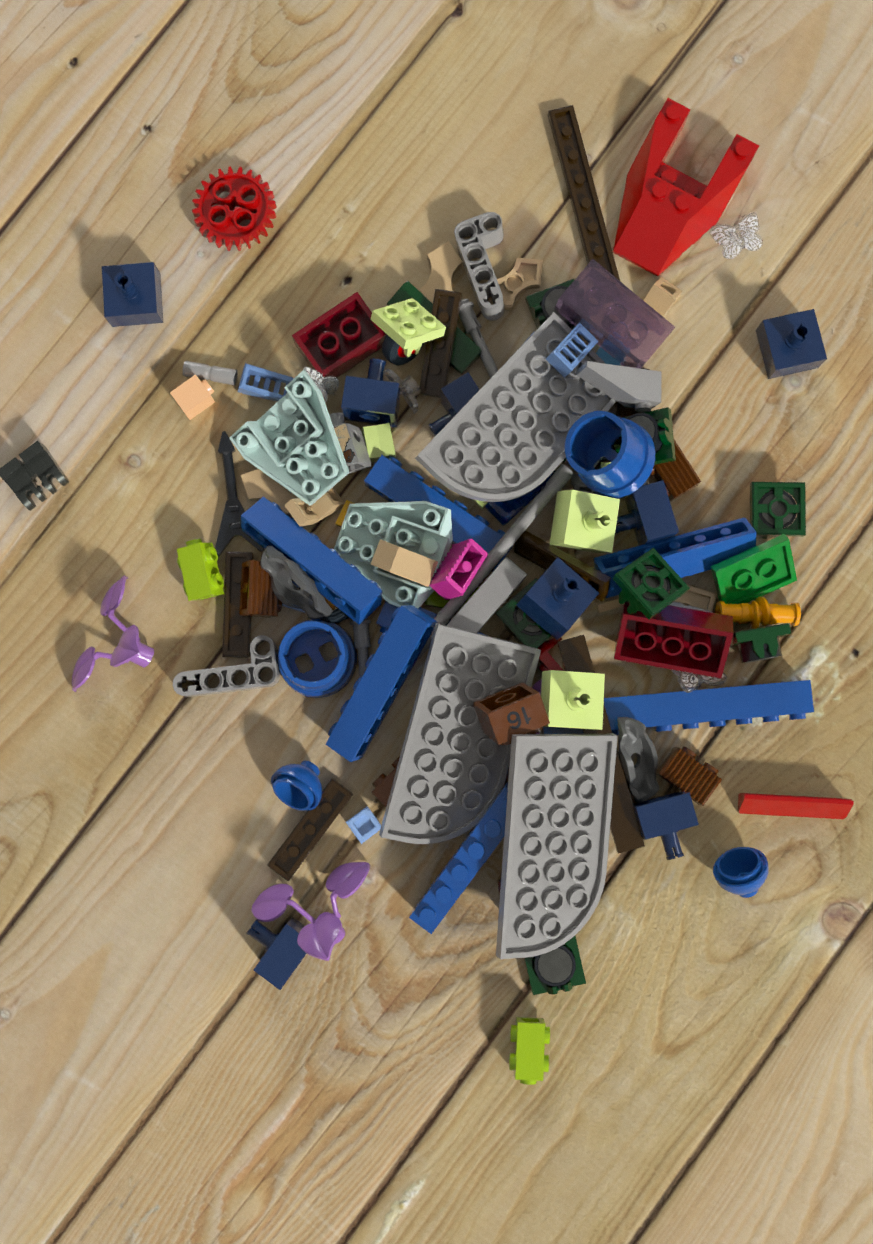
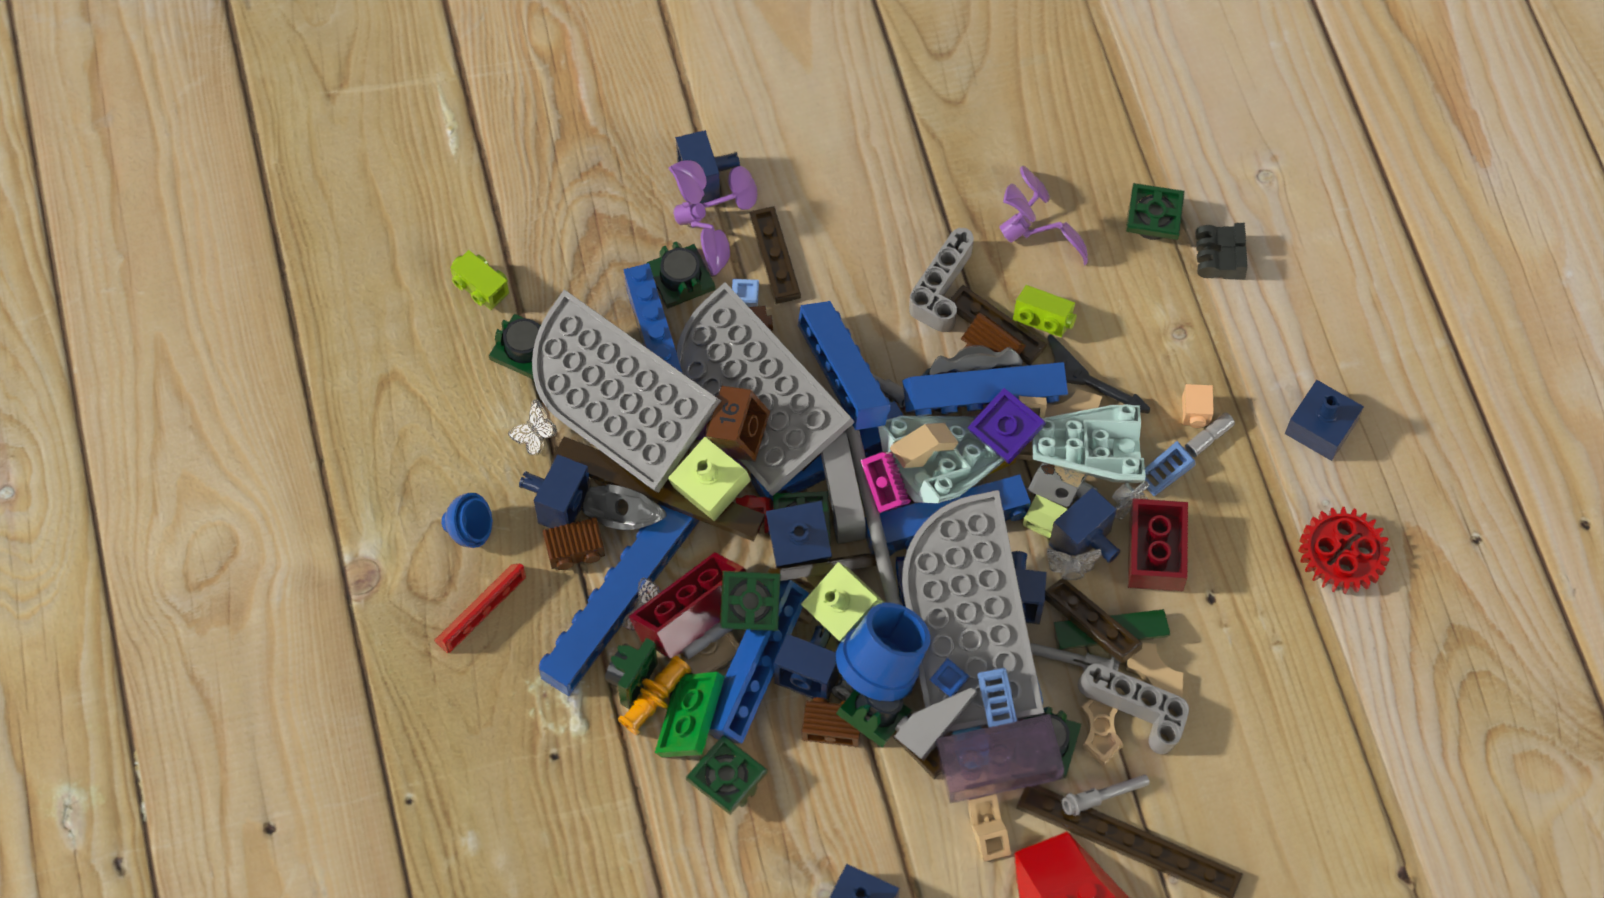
camera: 125 degrees right, 20 degrees down
(38, 550) = (1157, 213): none -> dark green piece
(298, 785) = (815, 264): blue piece -> none
(325, 677) = (901, 359): blue piece -> none
(335, 514) = (1006, 425): none -> dark purple plate
(390, 890) = (680, 274): none -> piece
(406, 329) = (1126, 594): yellowish green plate -> none
(577, 245) = (1075, 803): none -> light grey pin
(583, 397) = (949, 678): none -> blue tile
(621, 886) = (535, 430): none -> clear animal

